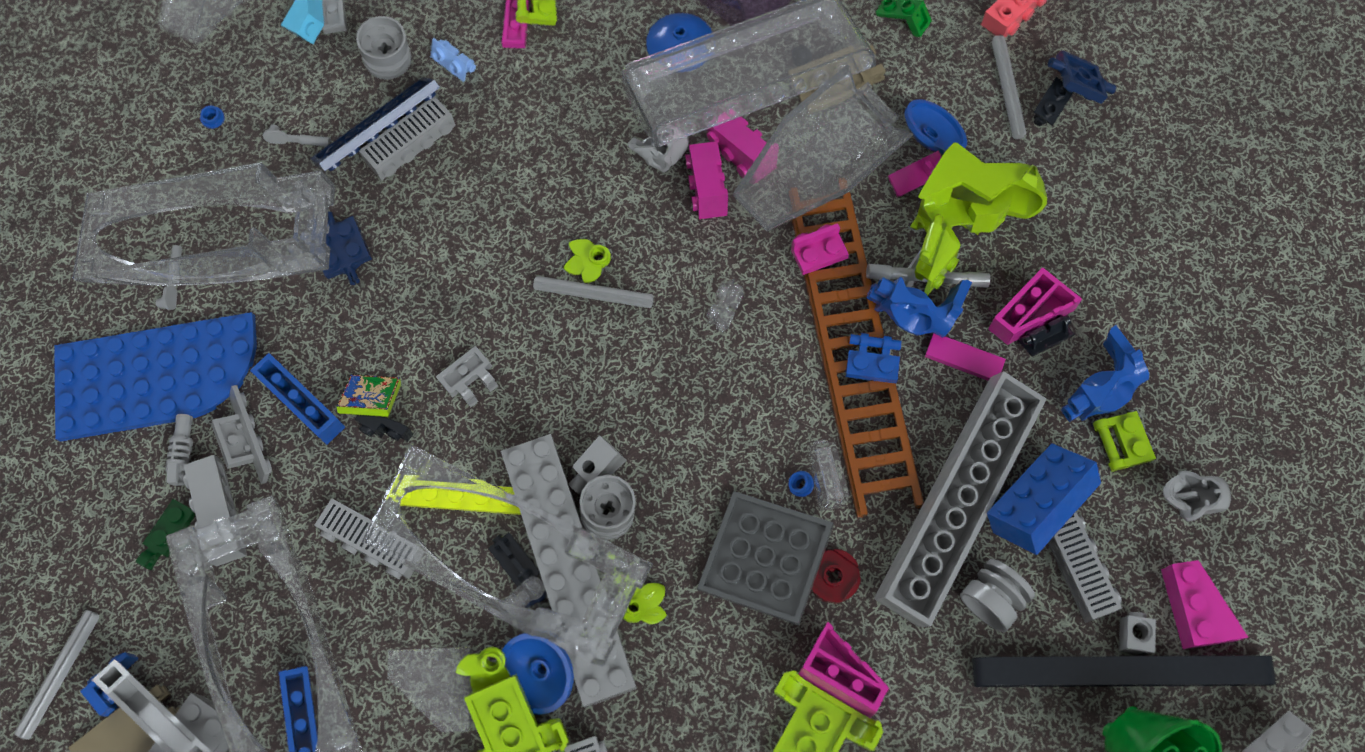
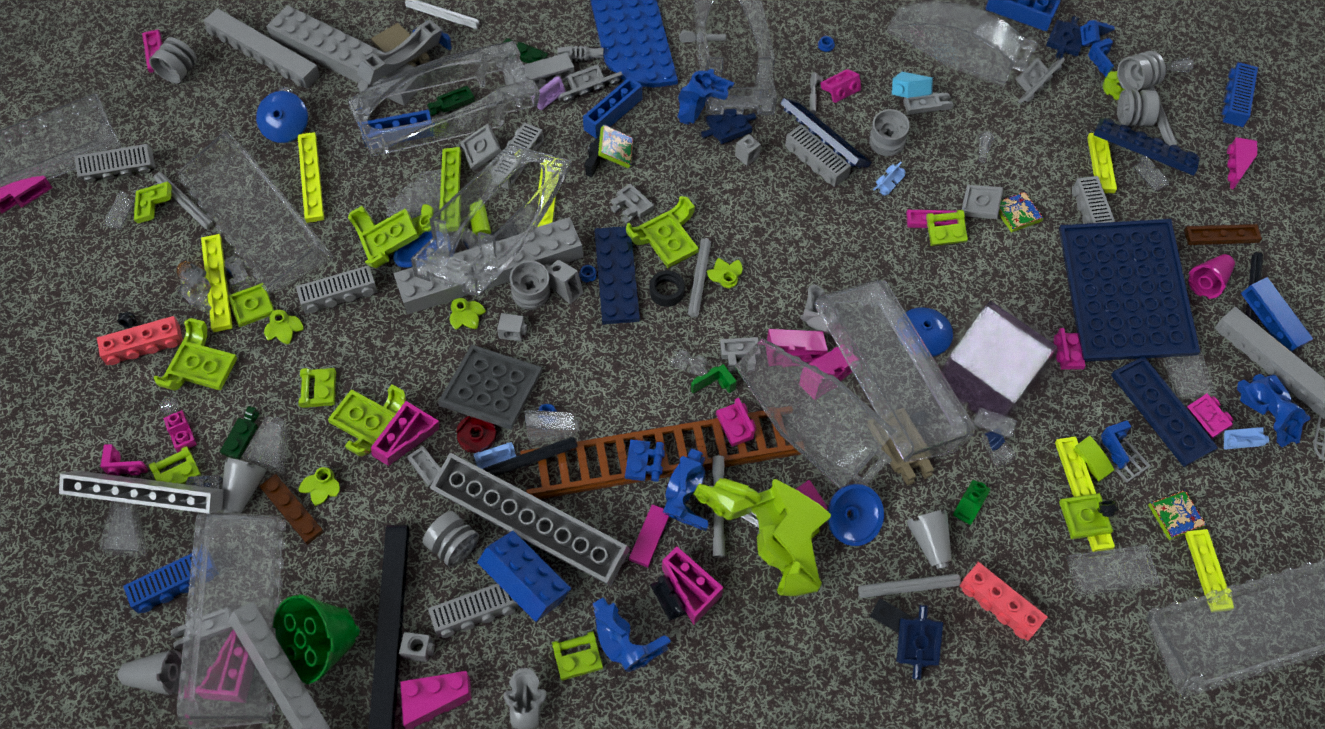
camera: 85 degrees right, 10 degrees down
(248, 487) = (550, 92): none -> lavender plate
(249, 644) = (451, 100): none -> dark green plate
(287, 101) = (842, 85): none -> dark pink bracket
(298, 278) = (694, 95): none -> blue hips
(349, 592) = (480, 147): none -> light grey tile
(391, 222) = (747, 149): none -> light grey brick
(426, 634) = (450, 174): none -> lime plate
(493, 584) = (480, 222): none -> lime brick
(524, 329) = (667, 234): none -> lime piece
(579, 429) = (588, 269): none -> blue plate
(583, 398) = (616, 276): none -> dark blue plate
(606, 314) = (667, 276): none -> black tyre
(669, 533) = (511, 327): none -> light grey brick
(705, 245) = (735, 349): none -> light grey plate
(751, 263) = (719, 373): none -> green bracket
(864, 549) = (494, 455): none -> light blue hinge
(873, 500) = (532, 456): none -> black axle
(884, 641) = (424, 465): none -> light grey plate
(953, 53) = (933, 537): none -> light grey cone

